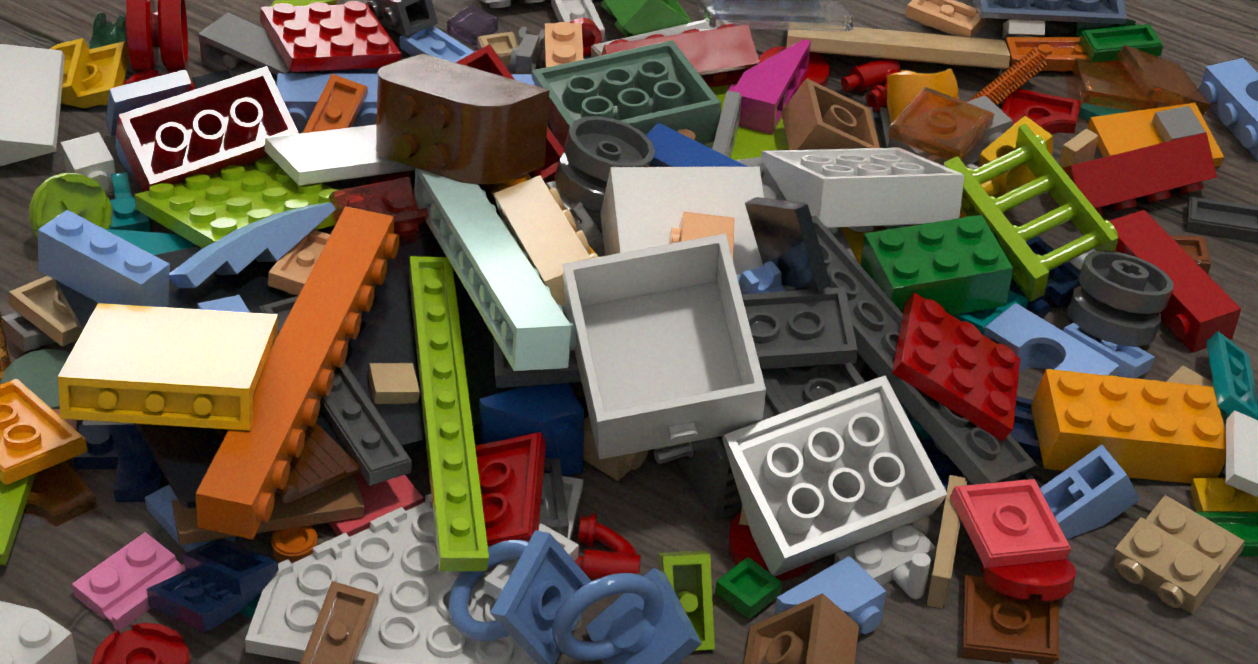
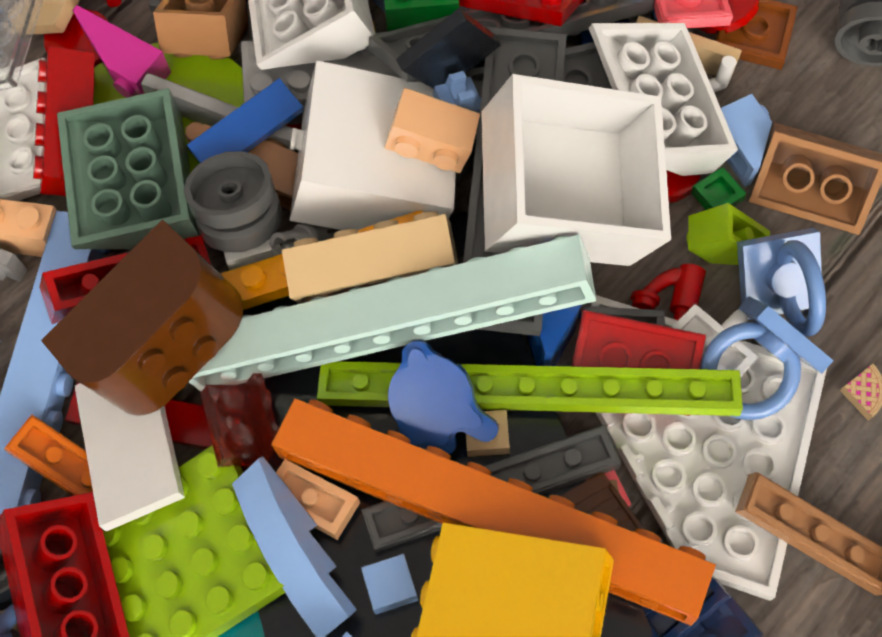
camera: 75 degrees left, 25 degrees up
(409, 320) = (436, 400): none -> tile

